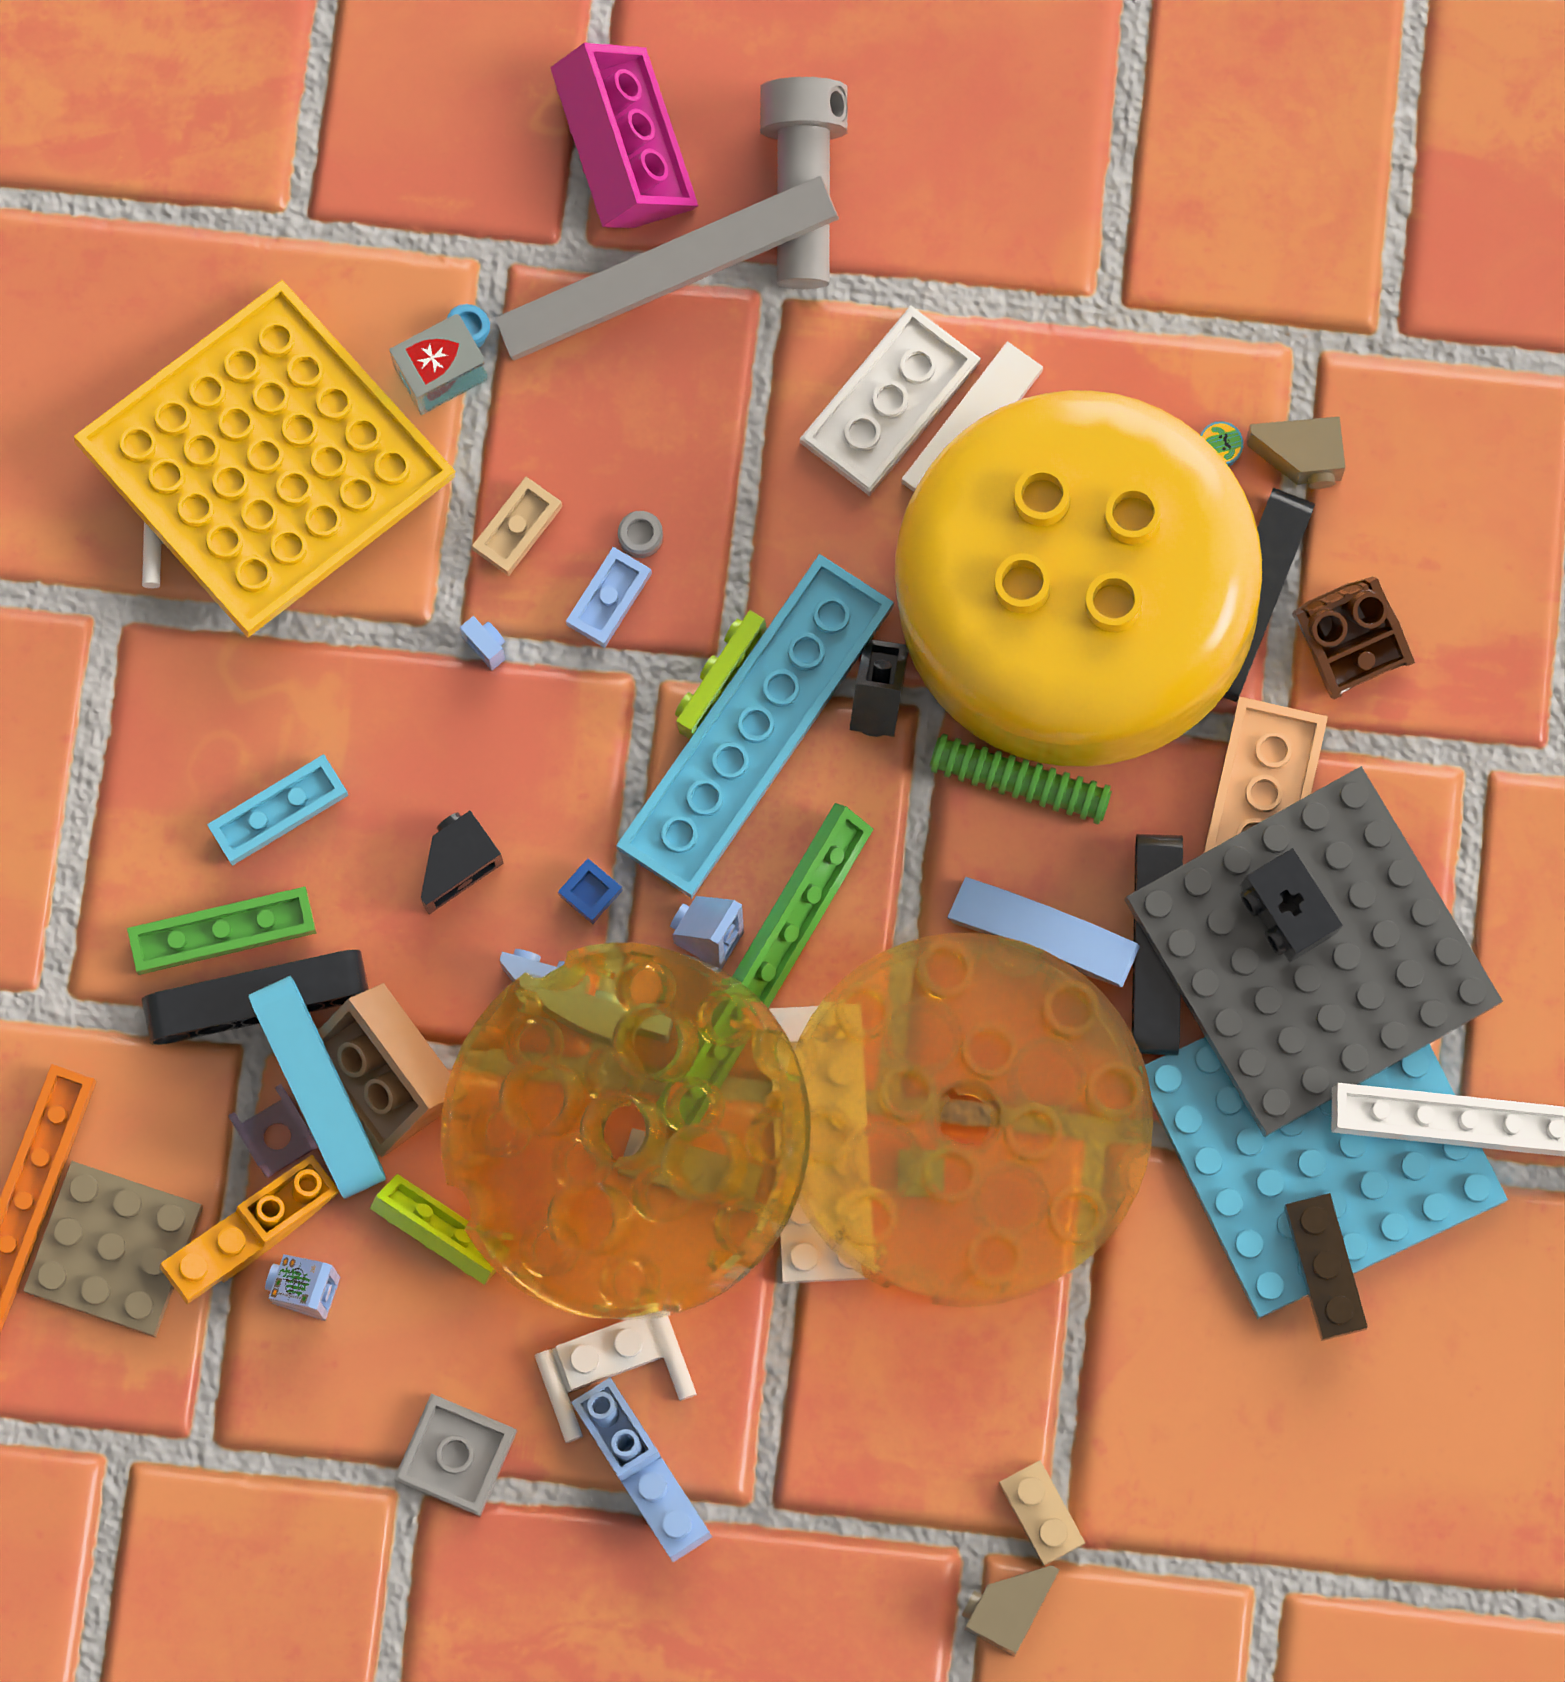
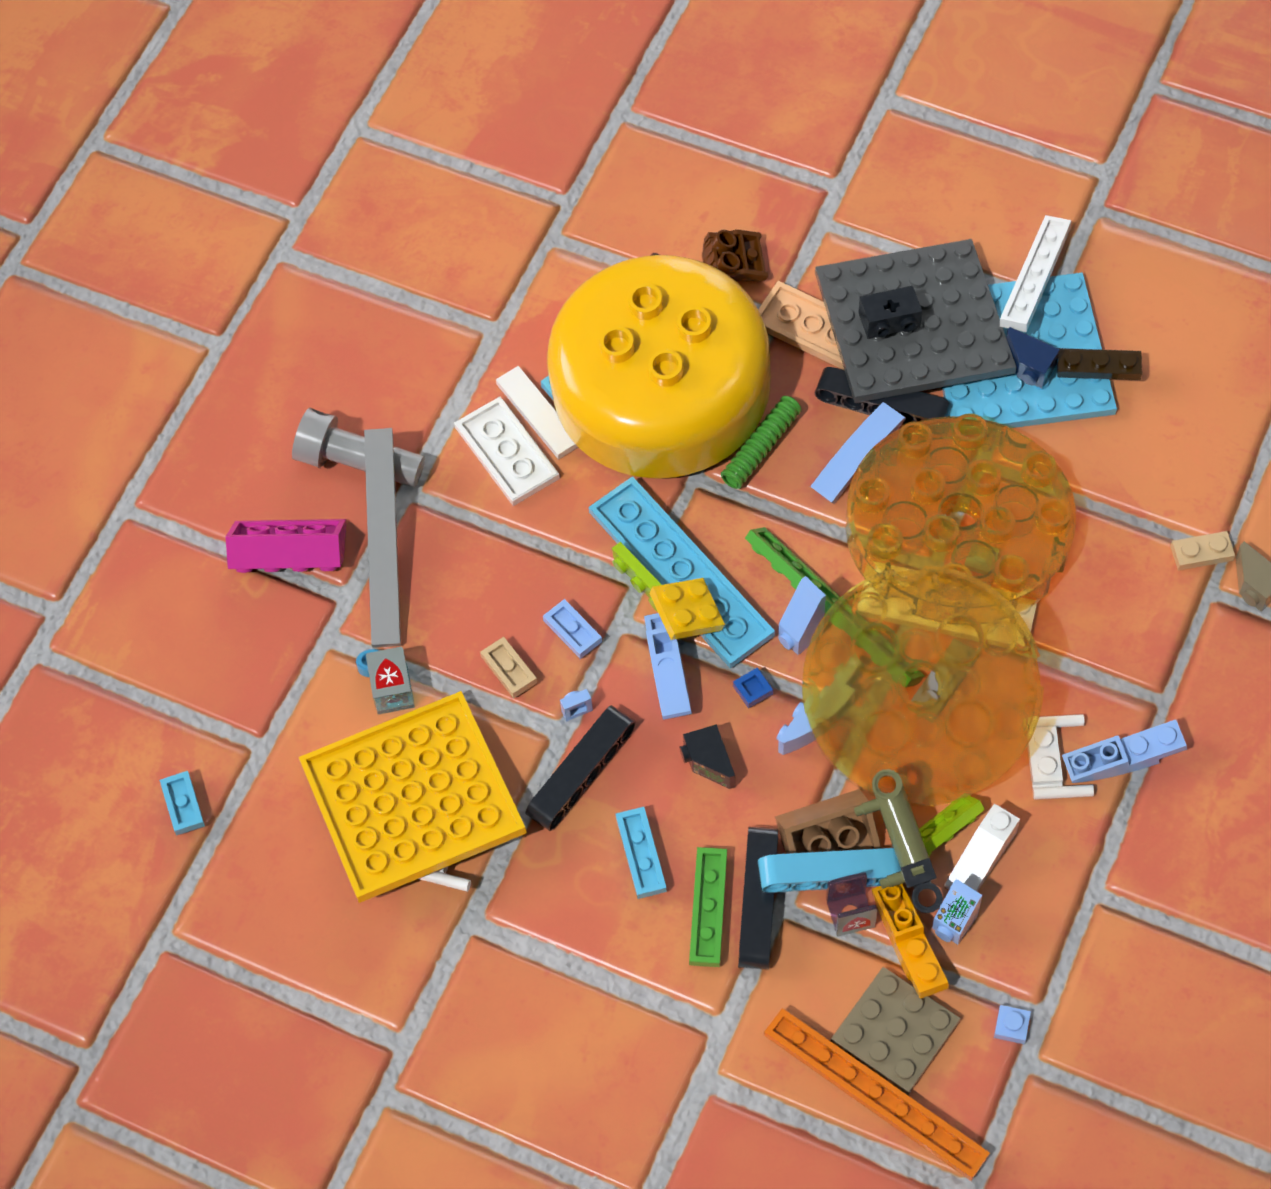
camera: 70 degrees left, 15 degrees down
(167, 146) = (182, 803): none -> medium azure plate
(168, 1411) = (1012, 1024): none -> light blue plate
(348, 1207) = (905, 839): none -> olive piece
(386, 682) = (580, 768): none -> black beam
(418, 1300) = (985, 848): none -> white slope
(455, 1455) = (1084, 861): light grey tile -> none
(585, 750) = (667, 669): none -> light blue slope
(640, 534) = (537, 603): light grey tile -> none
(676, 752) = (687, 608): none -> yellow plate
(879, 688) = (683, 498): black slope -> none
(1292, 1154) = (1032, 357): none -> dark blue slope
(1302, 449) = (619, 245): dark tan slope -> none

